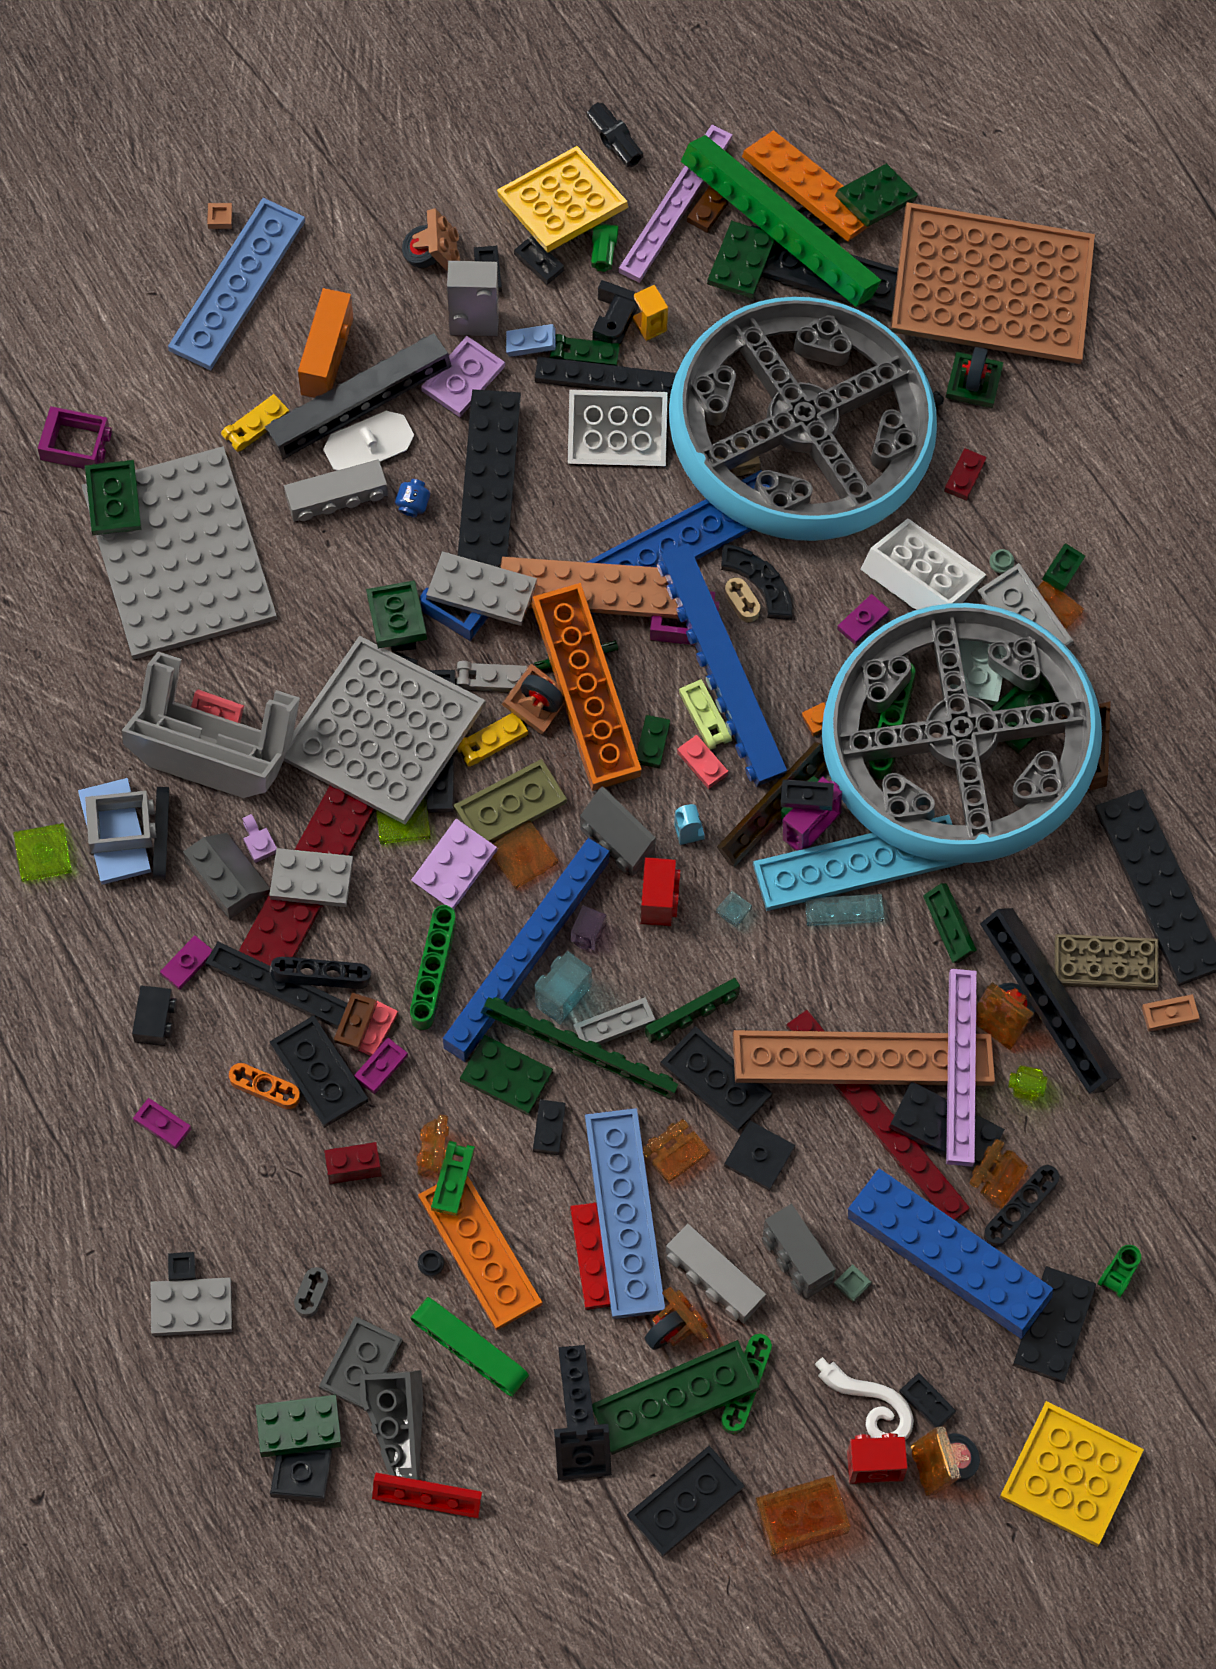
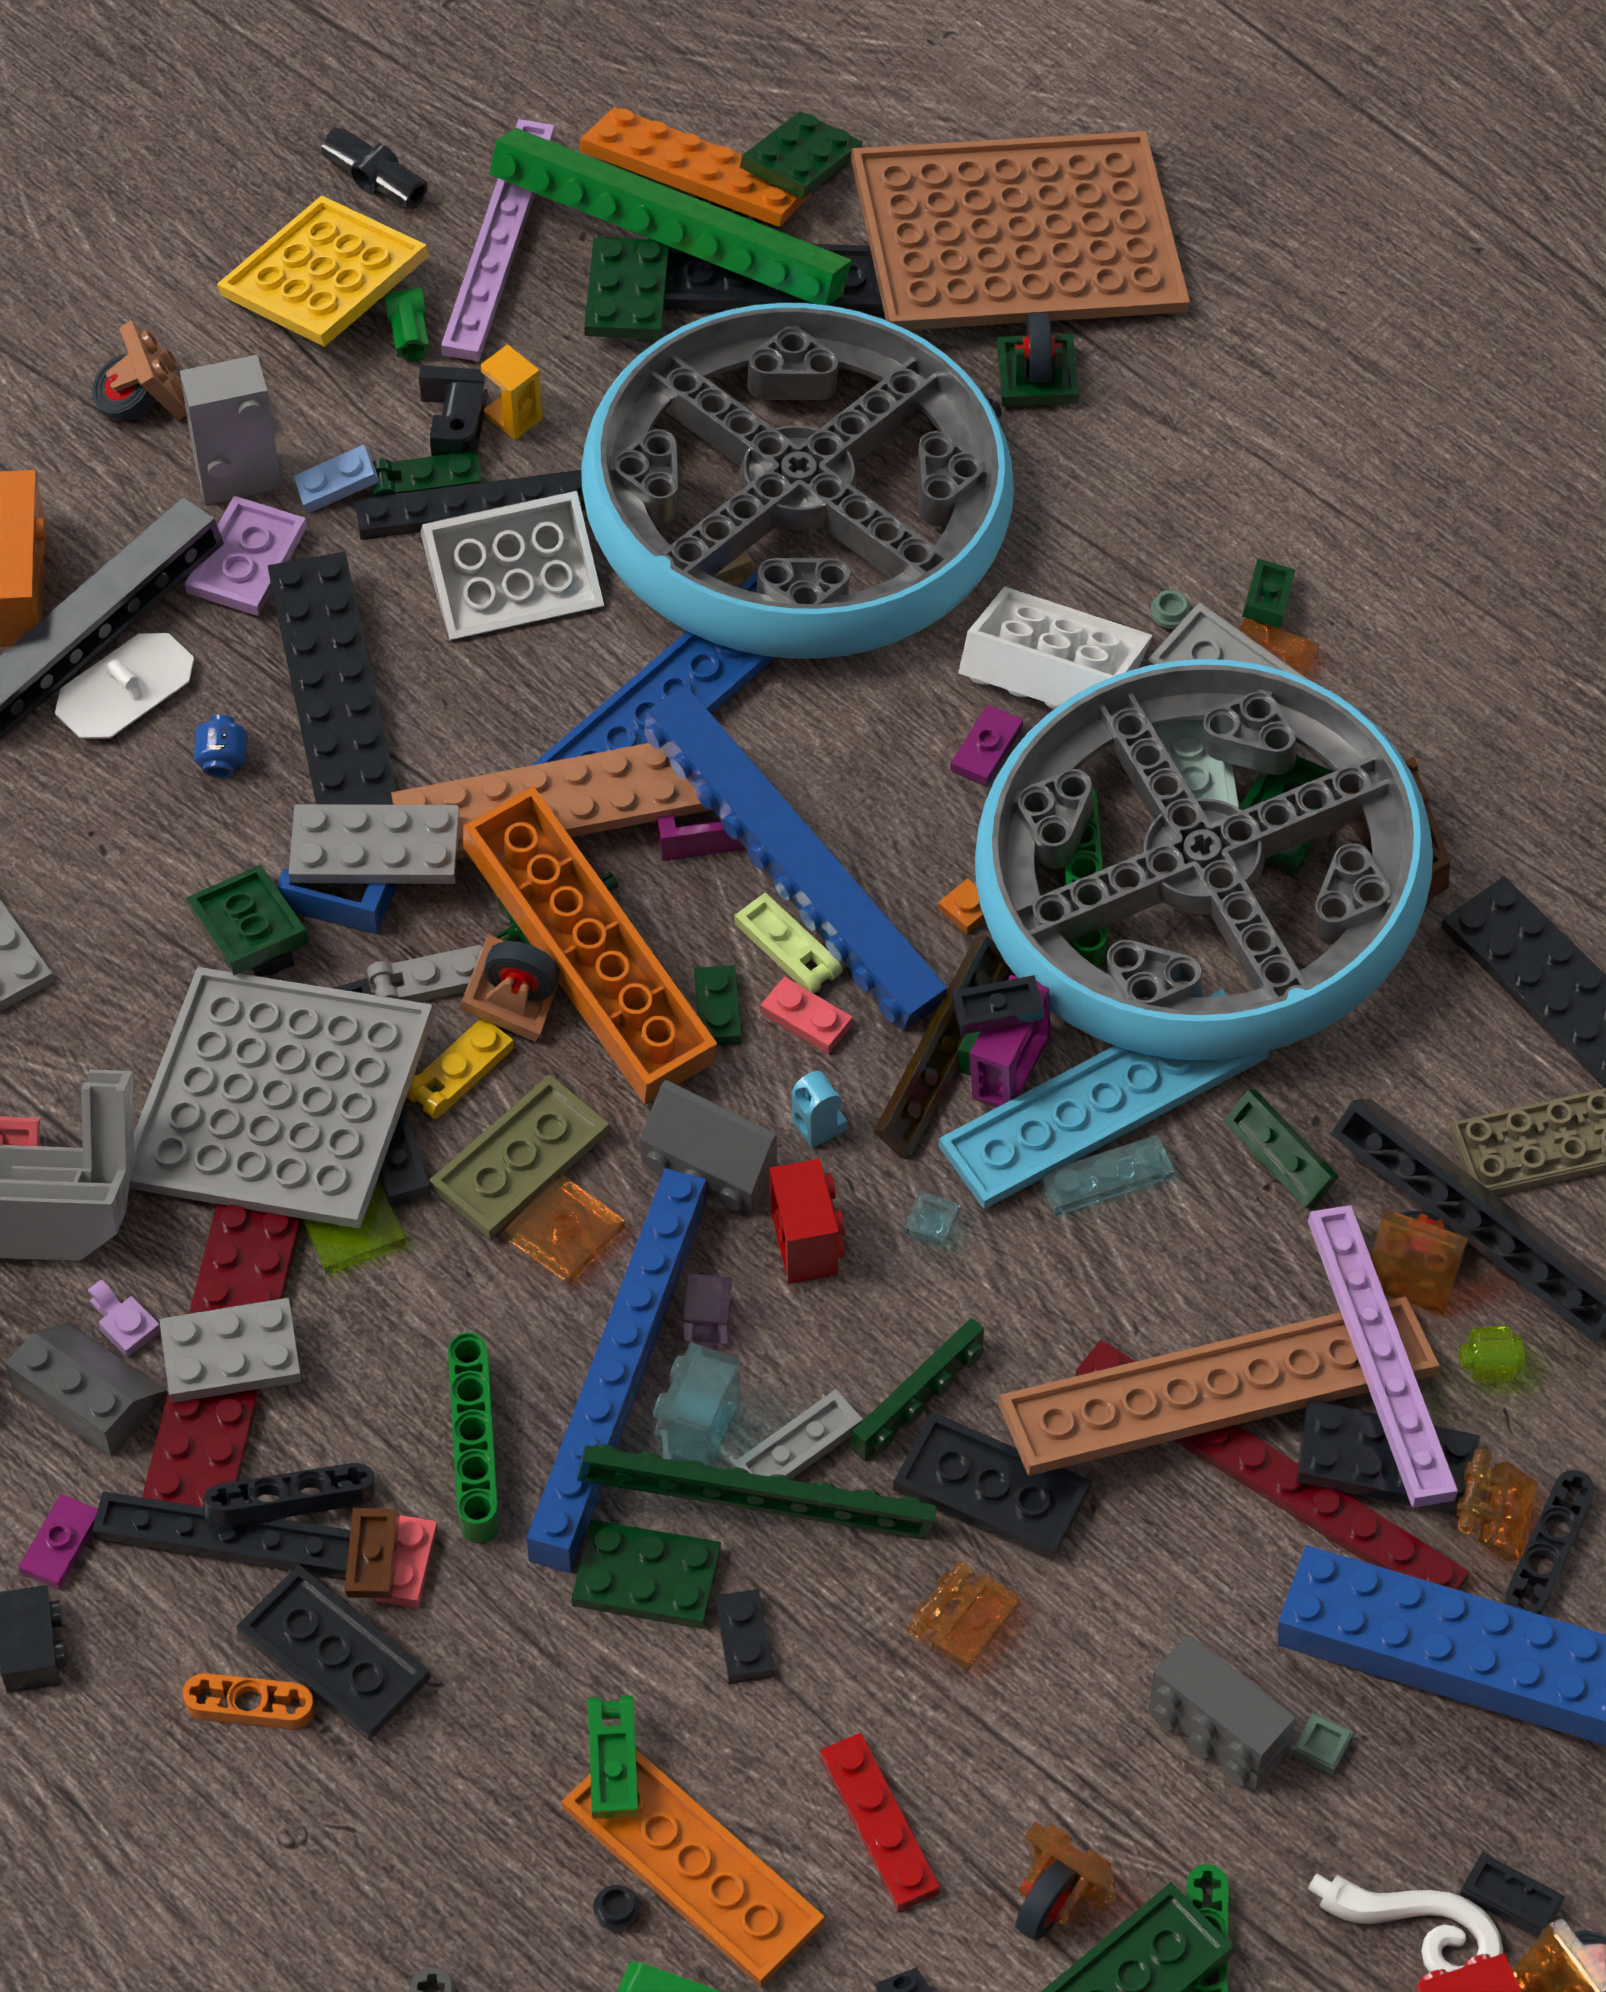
camera: 15 degrees left, 10 degrees down
(162, 1123) = (92, 1808): magenta plate -> none
(336, 490) = (93, 766): light grey brick -> none
(352, 1163) = (436, 1781): dark red brick -> none
(381, 1065) = (435, 1614): magenta plate -> none
(432, 1146) = (562, 1715): clear orange plate -> none
(454, 864) = (458, 1269): lavender plate -> none
(538, 260) = (313, 366): black plate -> none
(624, 1213) = (914, 1738): medium blue plate -> none
(707, 210) = (551, 235): reddish brown plate -> none
(715, 1274) = (1095, 1790): light grey brick -> none
(738, 602) = (785, 769): tan beam -> none
(759, 1155) = (1101, 1585): black plate -> none
(763, 576) = (808, 723): black tile -> none
(965, 474) = (1070, 504): dark red plate -> none

